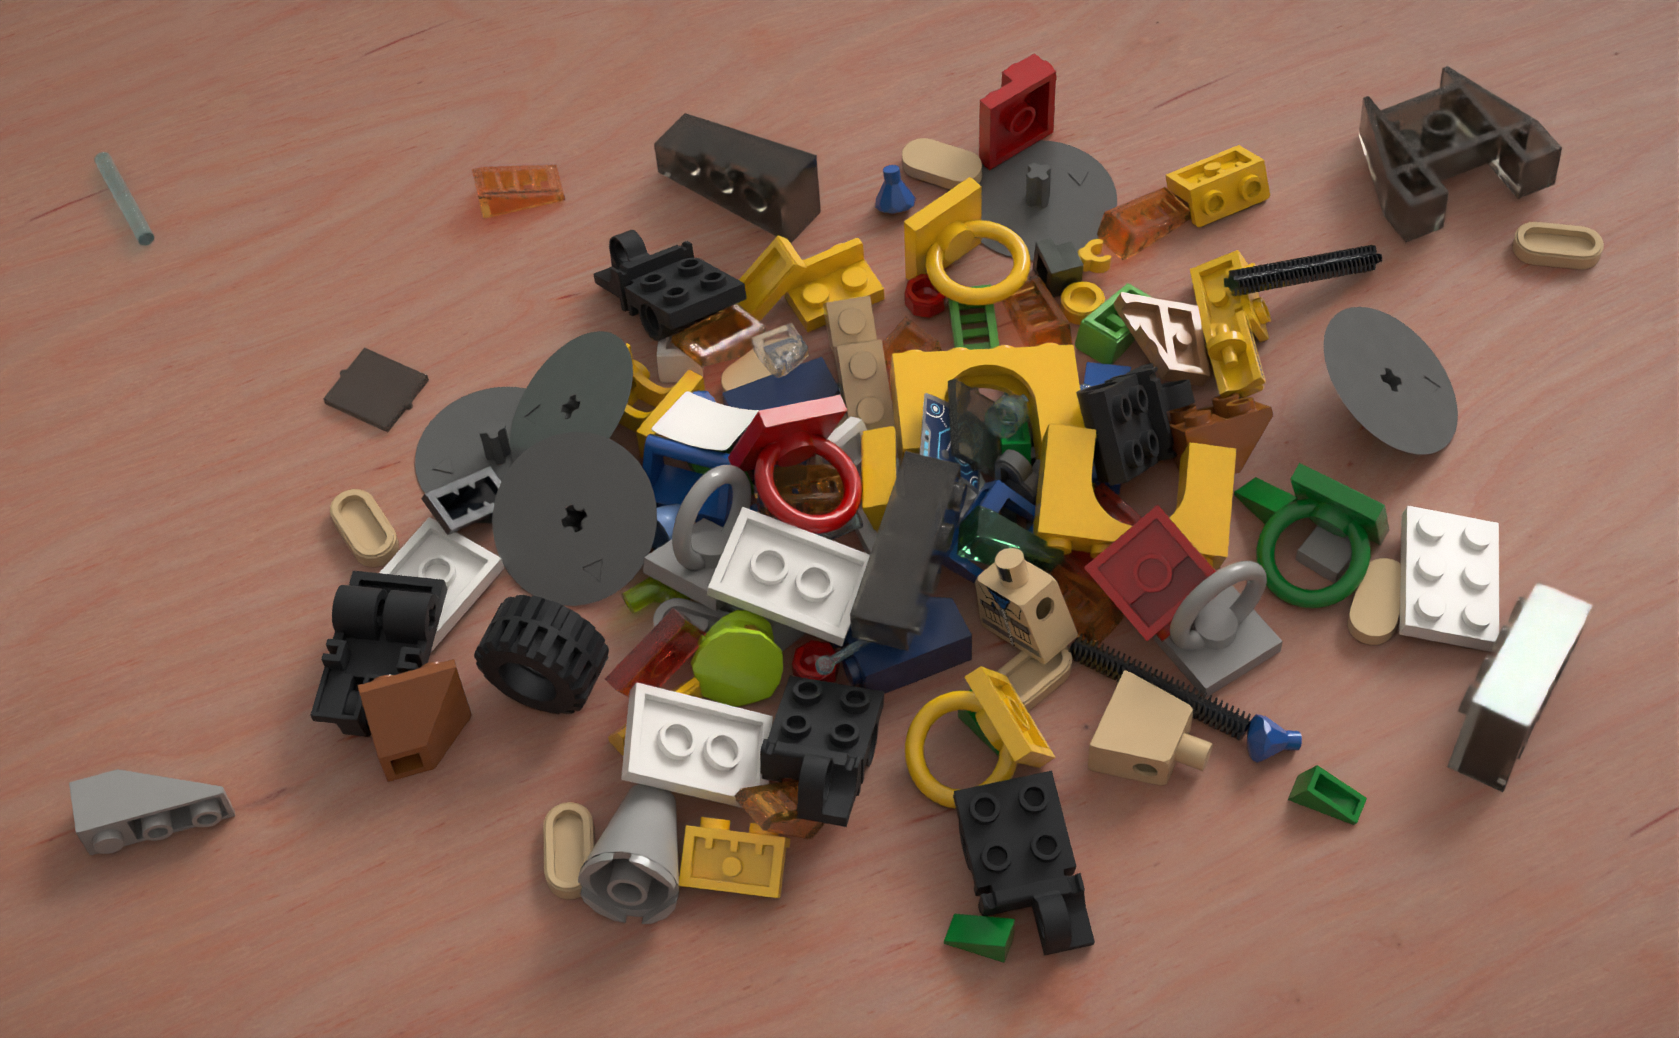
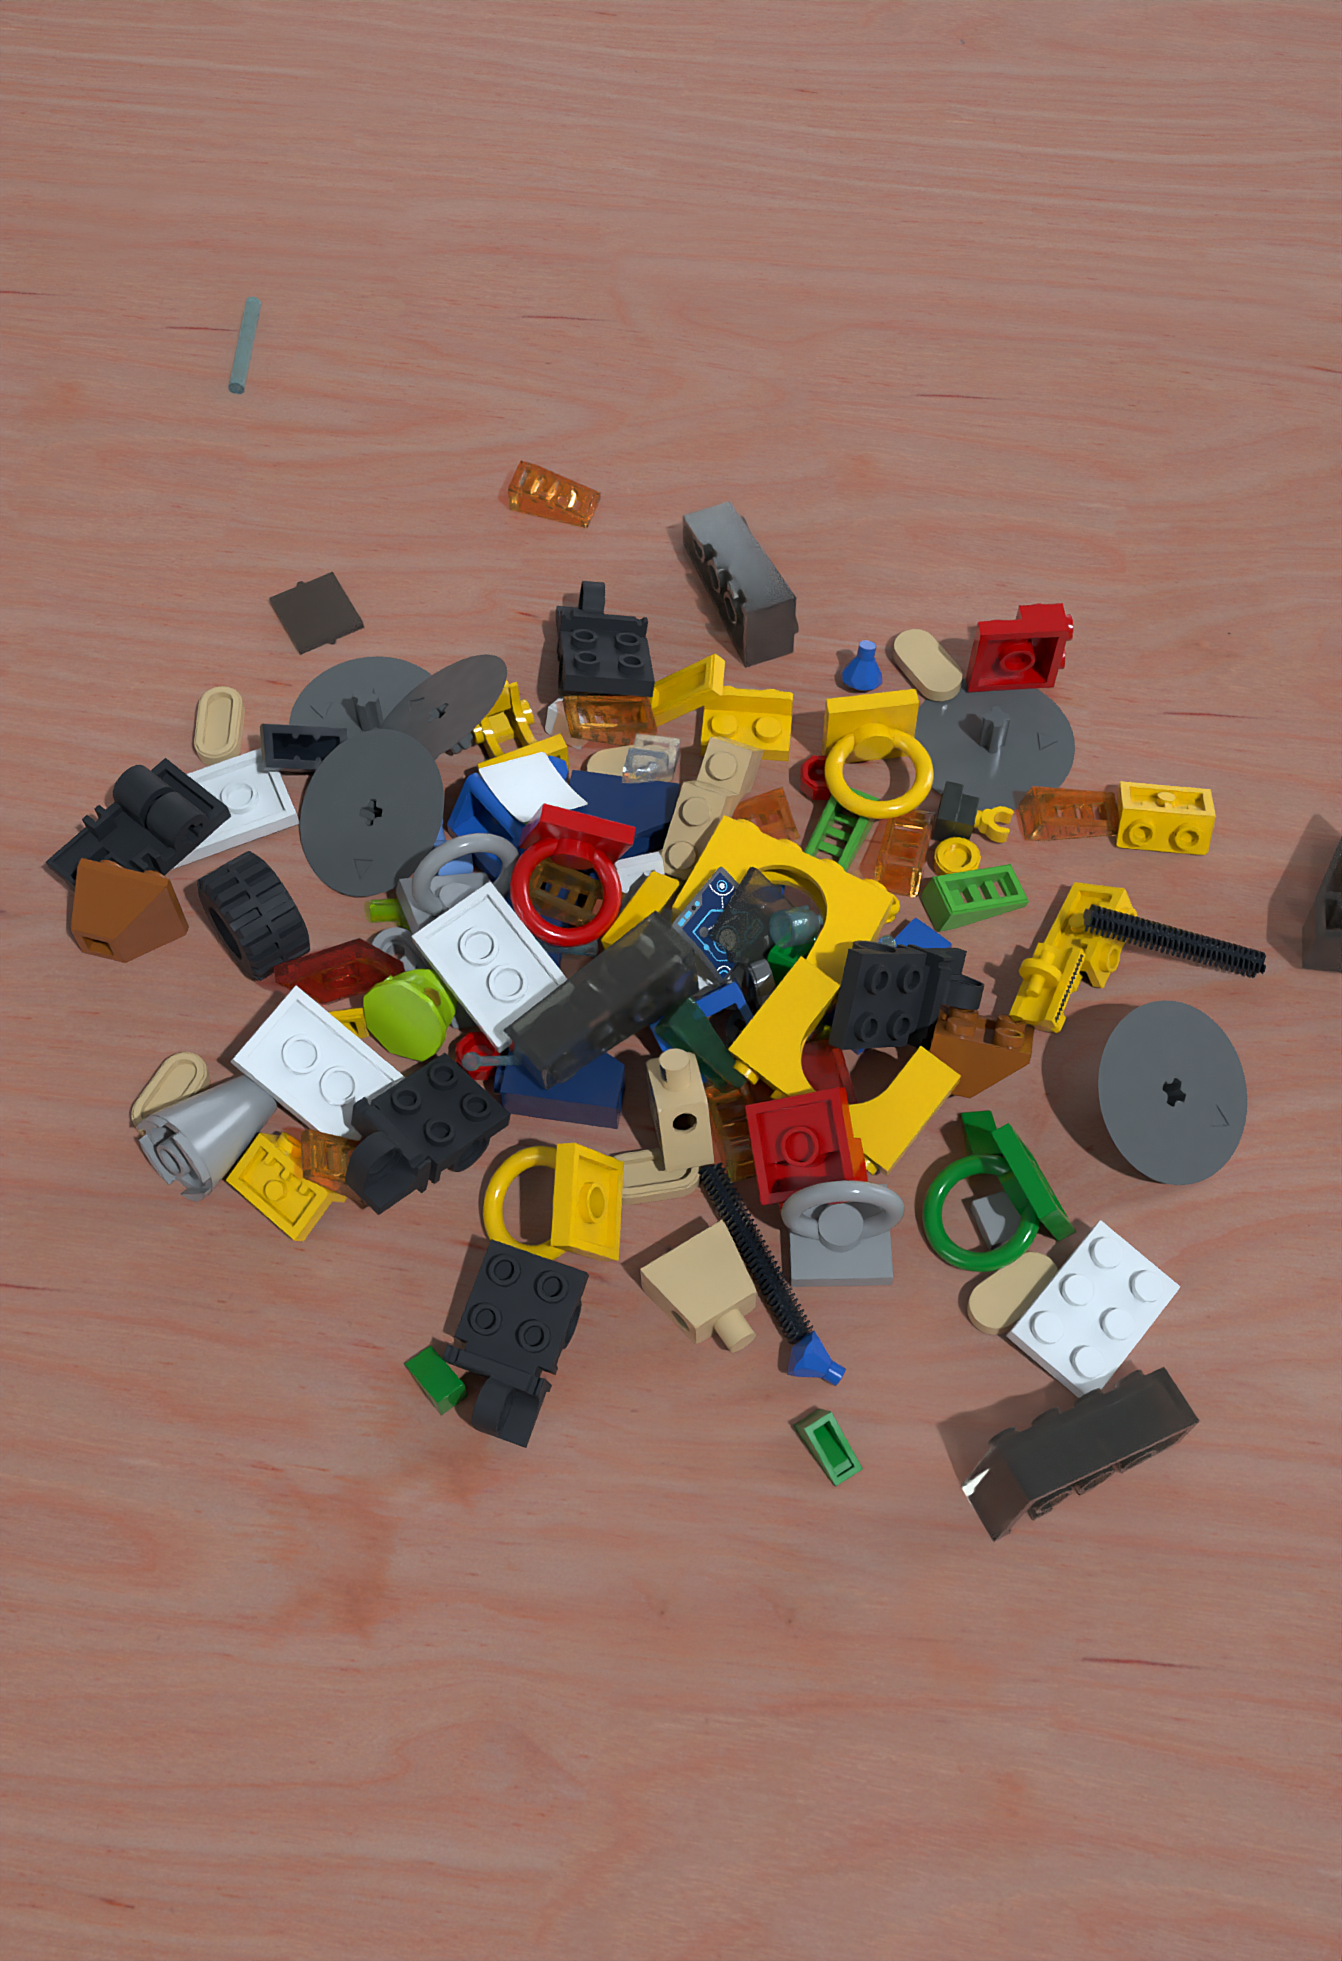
camera: 30 degrees right, 5 degrees up
(1168, 335) = (1002, 933): medium nougat wing -> none

